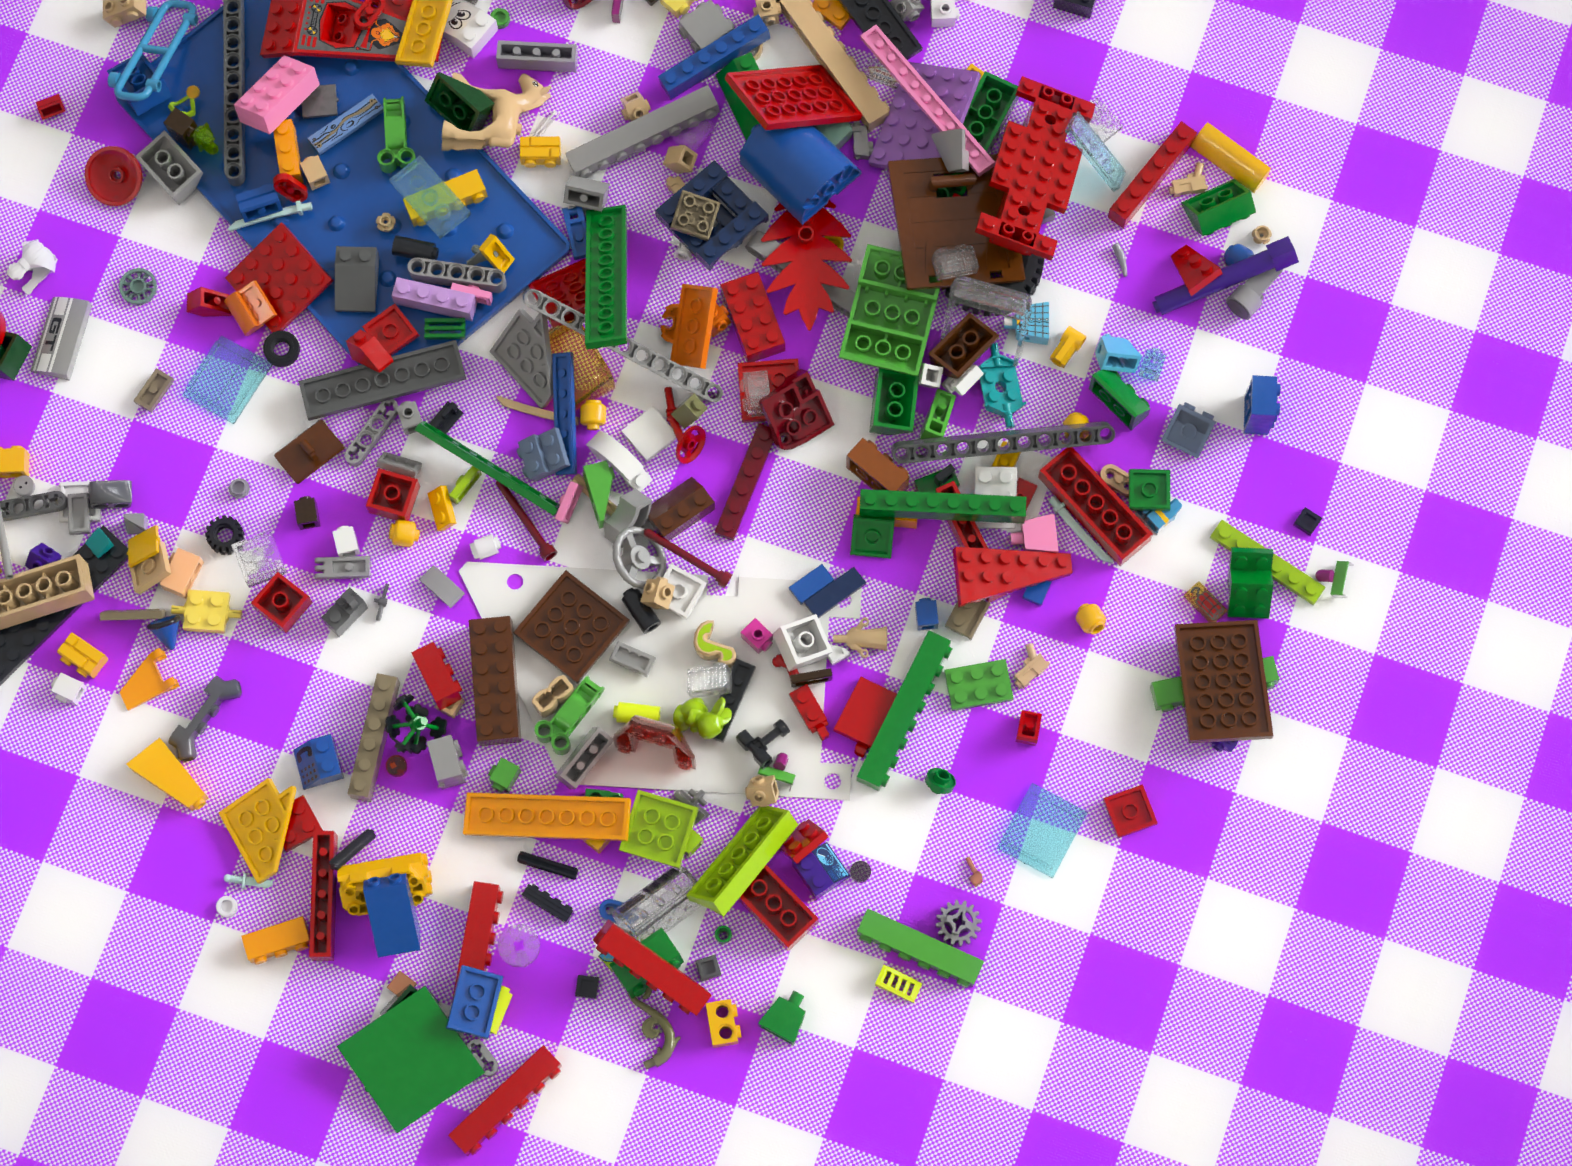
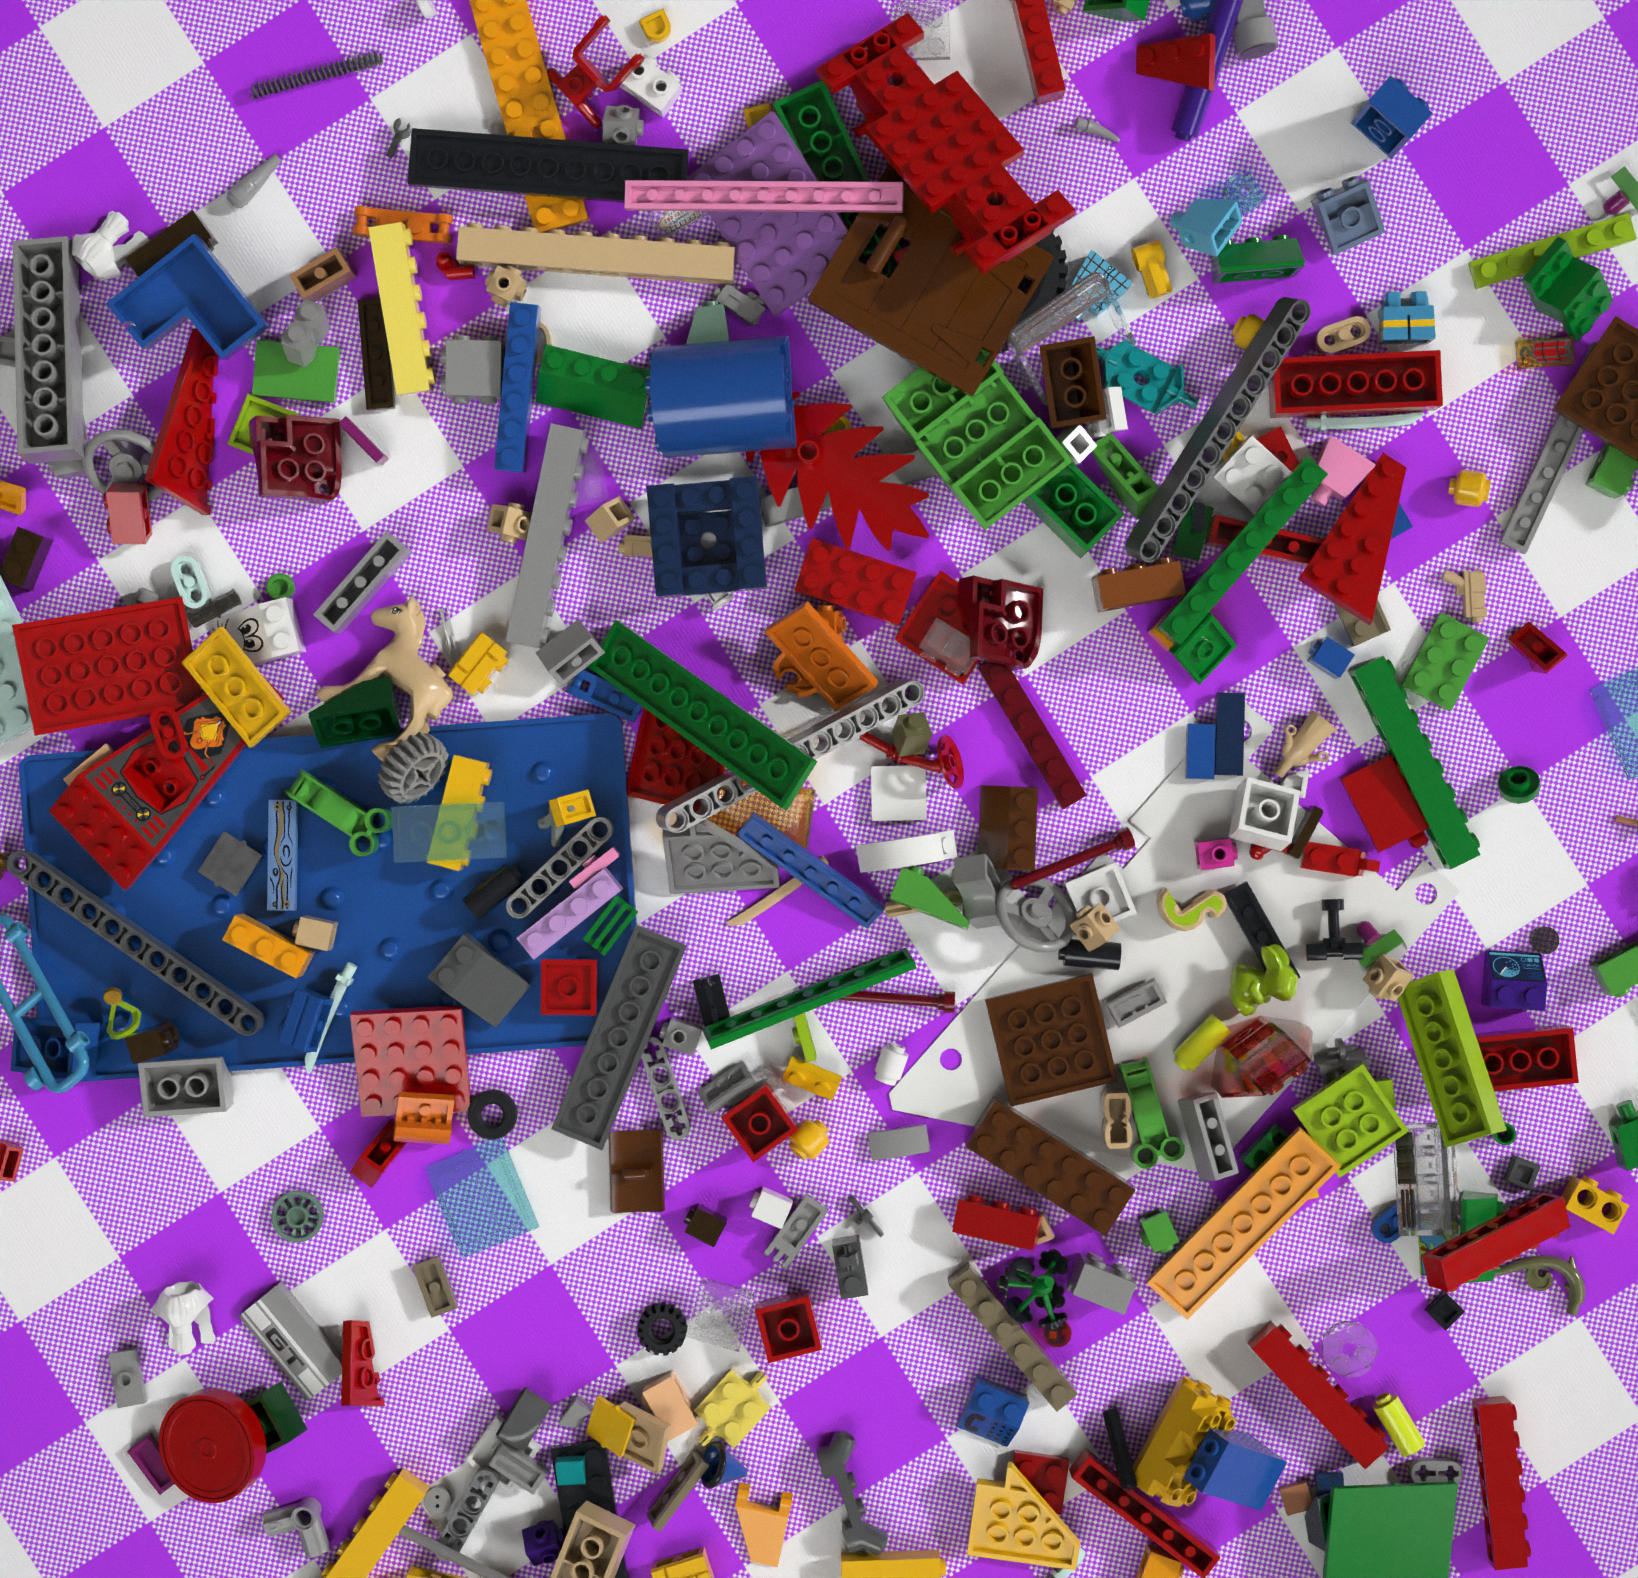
camera: 55 degrees left, 15 degrees up
(69, 382) = (358, 1374): none -> red wing
(103, 180) = (146, 1165): red dish -> none
(204, 139) = (183, 1026): clear neon green hinge -> none
(239, 488) = (619, 1274): light grey plate -> none
(276, 94) = (193, 910): bright pink brick -> none
(290, 187) = (315, 975): red plate -> none
(368, 351) = (579, 1030): red slope -> none
(389, 225) = (439, 891): tan plate -> none
(439, 151) = (413, 768): none -> light grey gear
(474, 1002) = (1385, 1446): blue plate -> none
(543, 454) = (837, 927): sand blue plate -> none
(545, 902) = (1327, 1286): black piece -> none
(547, 865) = (1286, 1256): black axle -> none
(568, 502) = (911, 940): bright pink plate -> none
(593, 414) = (832, 838): yellow head -> none
(695, 215) = (697, 558): dark tan tile -> none
(709, 680) = (1227, 943): clear brick -> none
(793, 97) = (644, 343): red plate -> none
(803, 841) = (1477, 976): red plate -> none
(952, 149) = (851, 217): light grey slope -> none
(955, 262) = (985, 319): clear brick -> none
(1095, 151) = (964, 58): clear light blue tile -> none
(1126, 659) = (1542, 482): none -> light grey plate
(1149, 489) = (1387, 313): green tile -> none
(1307, 521) = (1541, 171): black tile -> none

